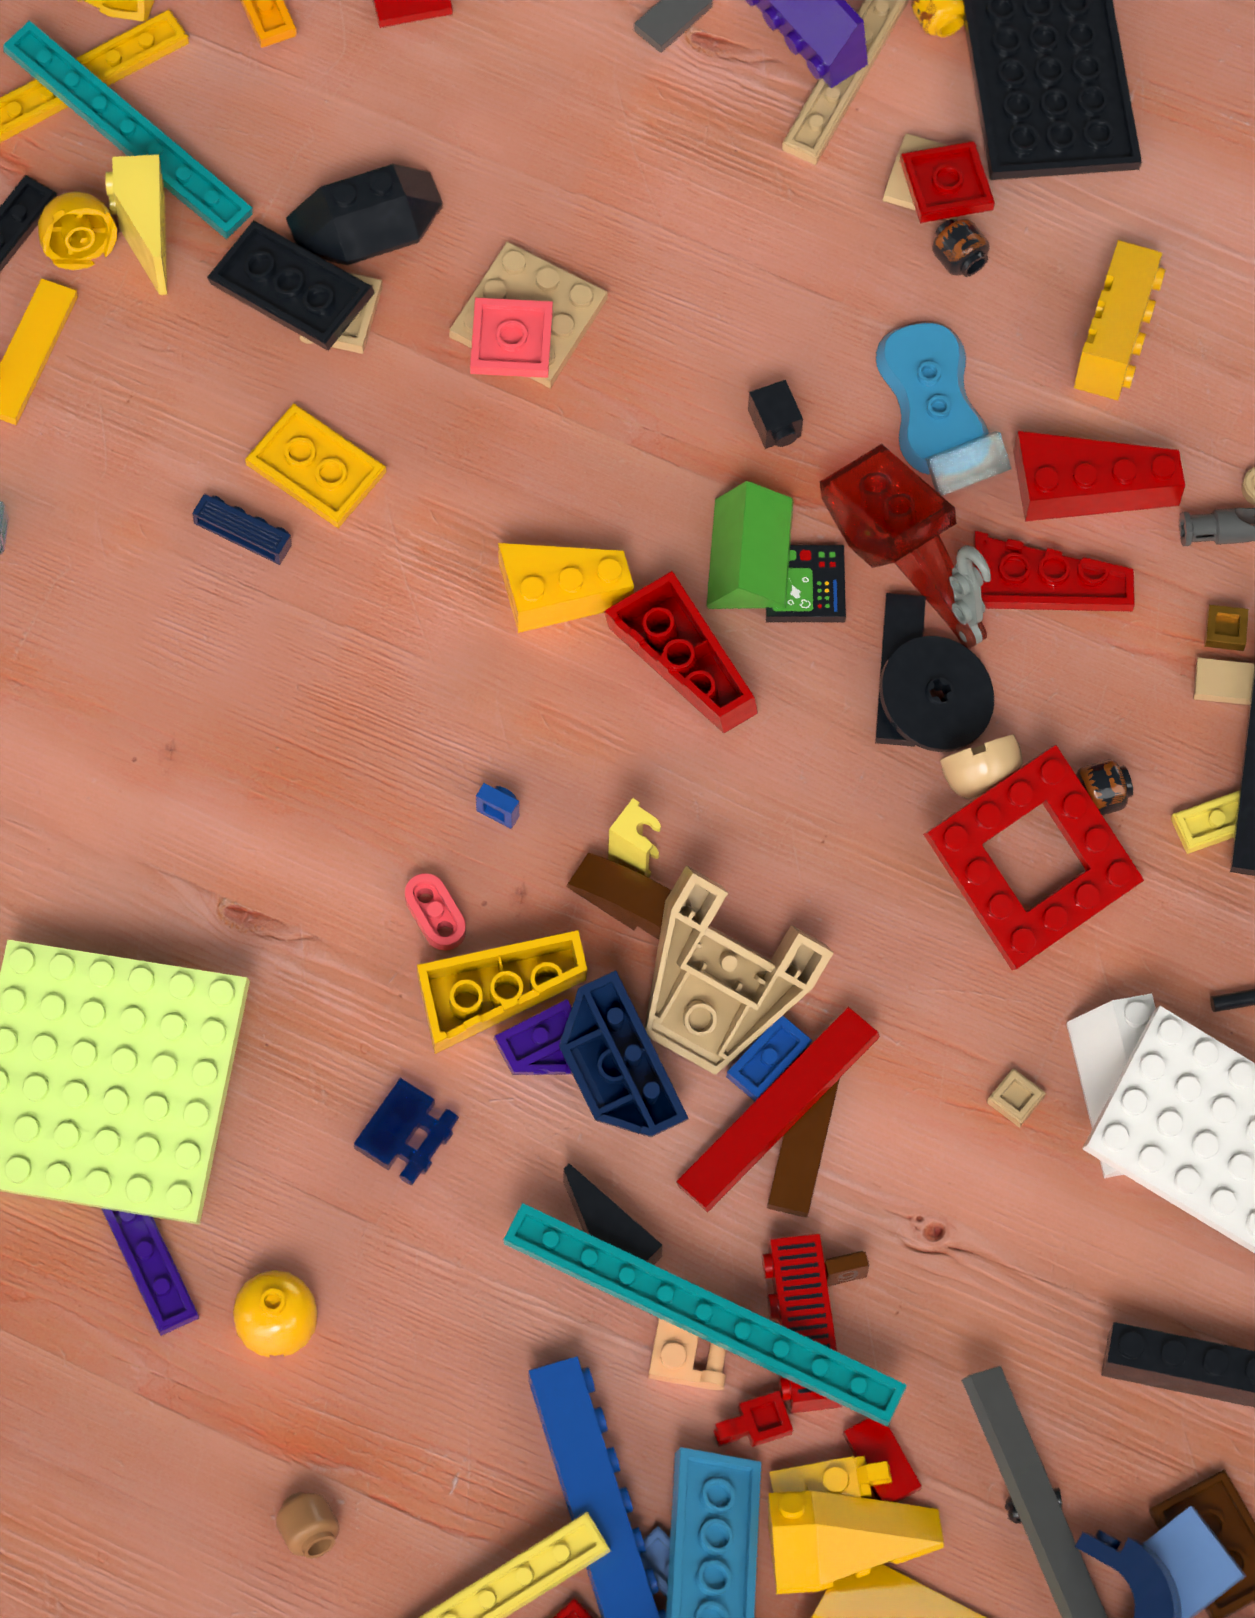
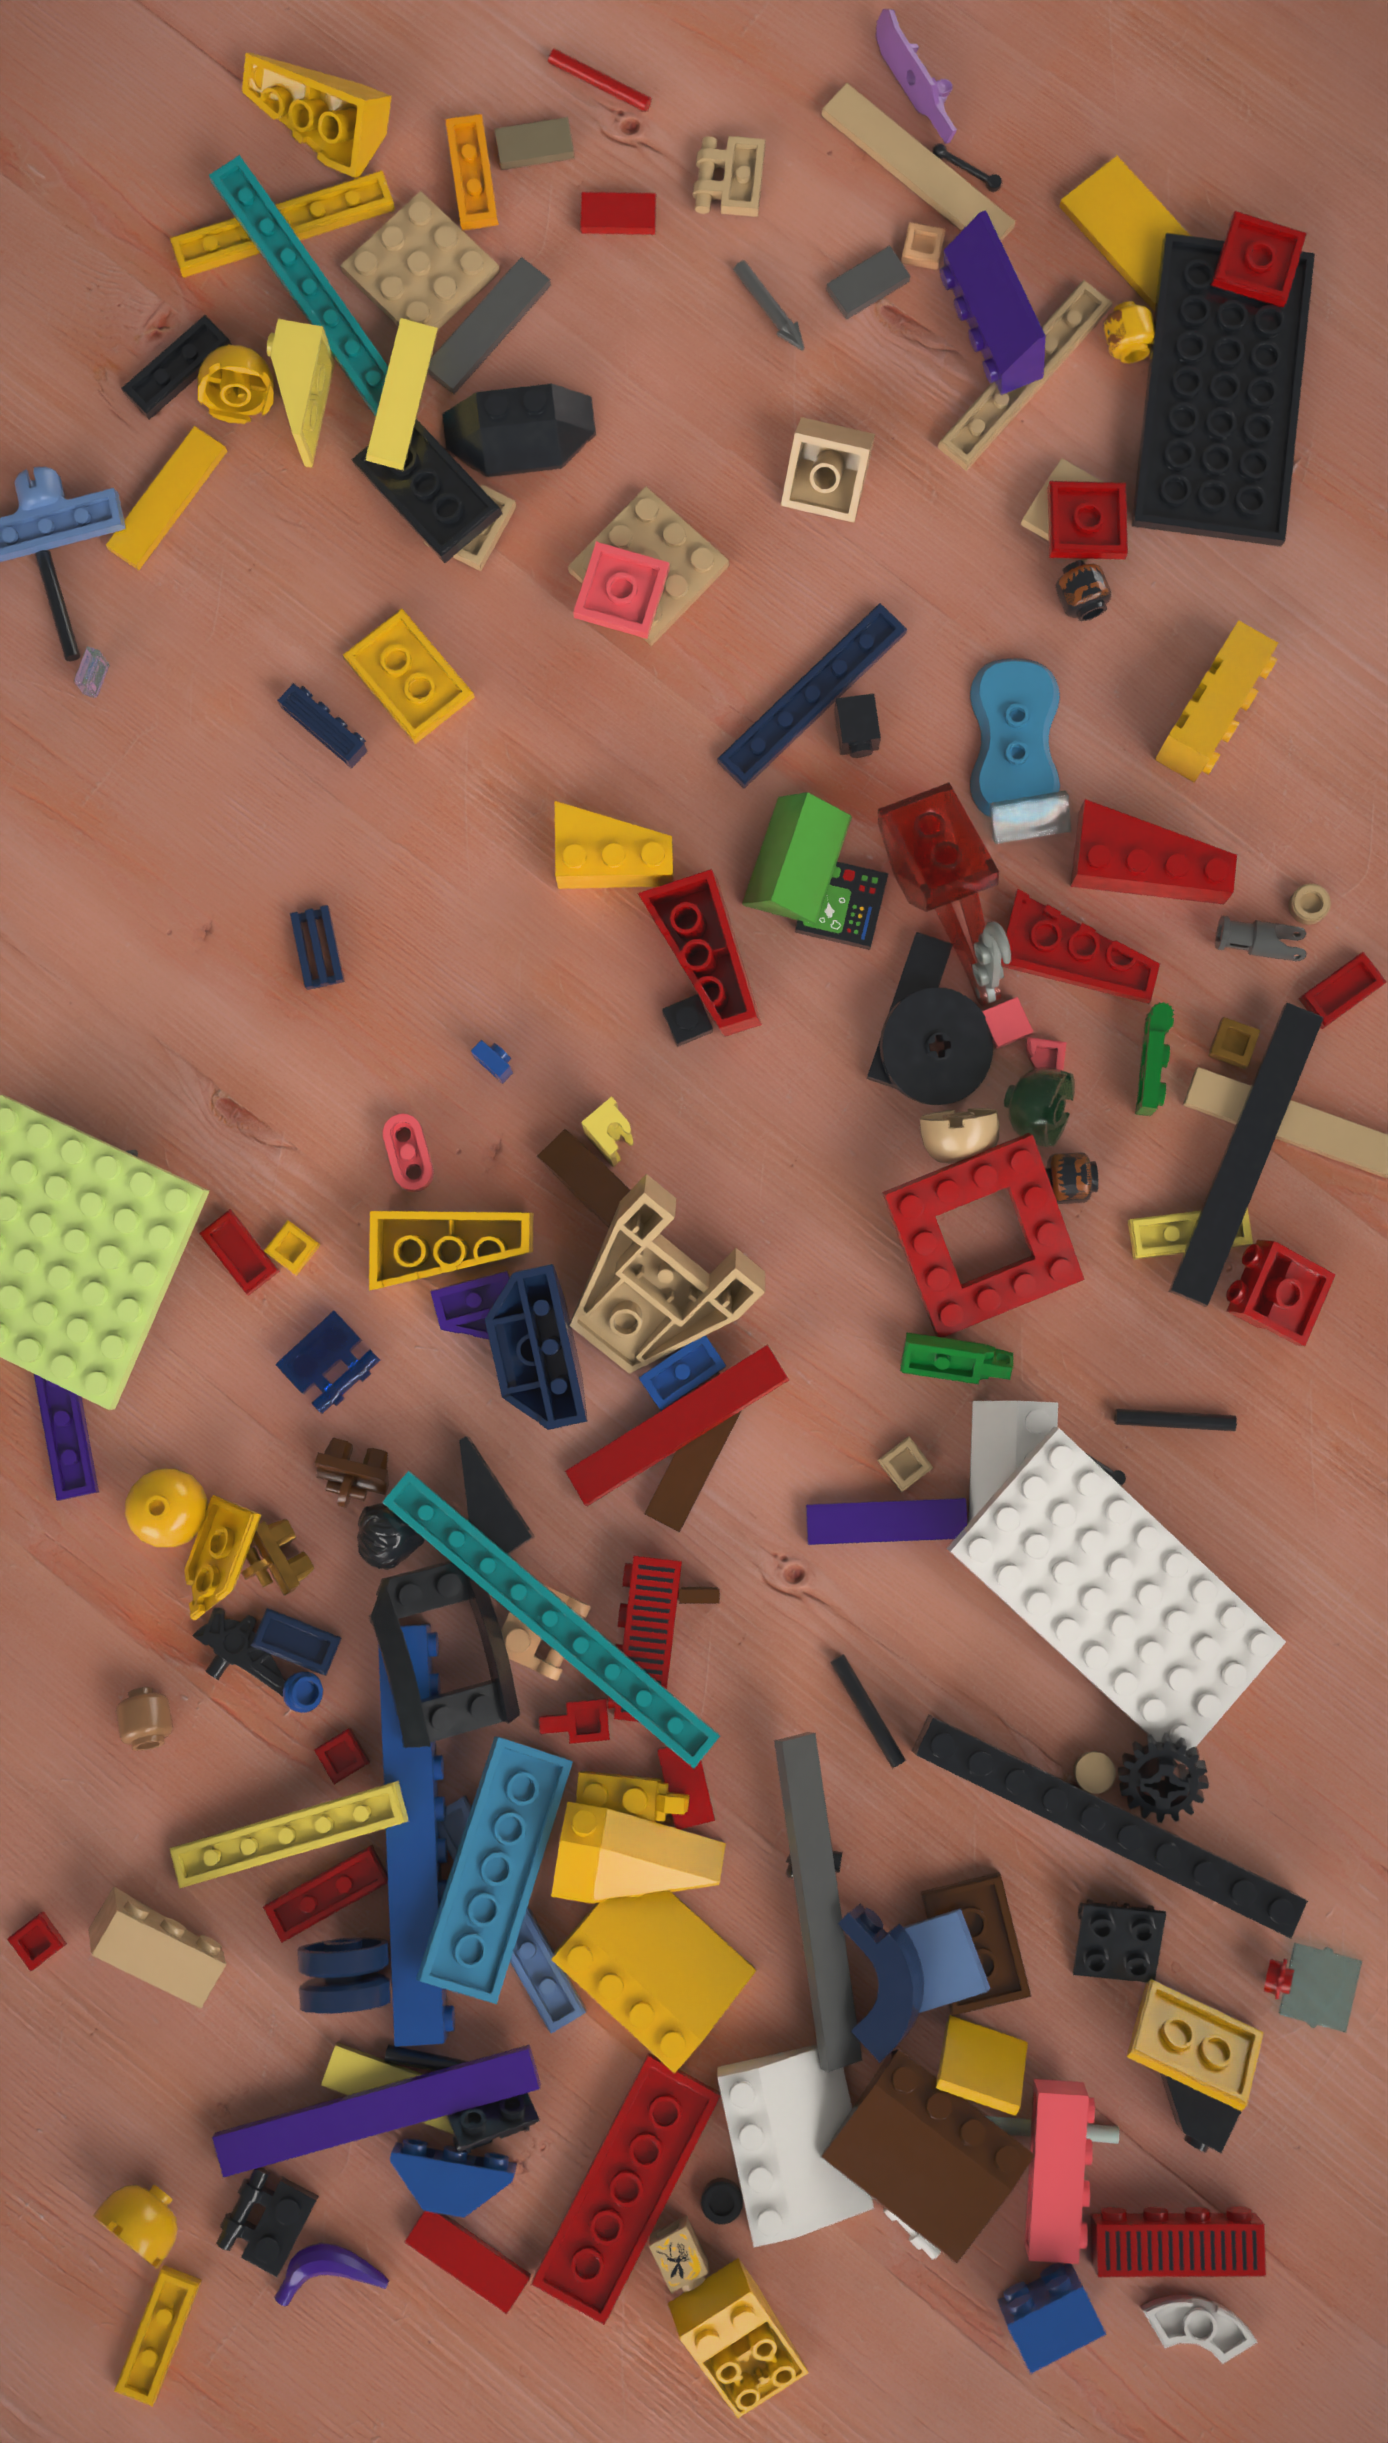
camera: 20 degrees right, 15 degrees up
(229, 91) = (420, 265): none -> tan plate
(245, 205) = (401, 394): none -> light yellow tile
(277, 711) = (310, 916): none -> dark blue tile
(286, 1048) = (239, 1252): none -> red tile
(309, 128) = (488, 325): none -> dark grey tile
(339, 1031) = (292, 1247): none -> yellow tile
(344, 1339) = (219, 1553): none -> yellow tile
(386, 1434) = (233, 1646): none -> black piece
(400, 1336) = (285, 1572): none -> pearl gold hips
(444, 1414) = (296, 1642): none -> dark blue tile
(460, 1232) = (350, 1477): none -> reddish brown hips
(465, 1460) = (302, 1692): none -> blue plate
(512, 1283) = (385, 1537): none -> black hair
(520, 1517) = (342, 1756): none -> red tile
(605, 71) = (787, 329): none -> dark grey piece
(625, 1434) = (456, 1710): none -> black wedge
(681, 190) = (827, 469): none -> tan slope
(682, 726) = (687, 1020): none -> black plate
(722, 400) = (812, 695): none -> dark blue tile
(1000, 658) = (1007, 1022): none -> coral tile
(1010, 1157) = (885, 1521): none -> dark purple tile
(1036, 984) = (954, 1359): none -> green hinge
(1046, 1344) = (868, 1711): none -> black bar
(1047, 682) = (1046, 1053): none -> coral tile
(1053, 720) = (1039, 1104): none -> clear green cylinder
(1152, 659) = (1153, 1058): none -> green hinge

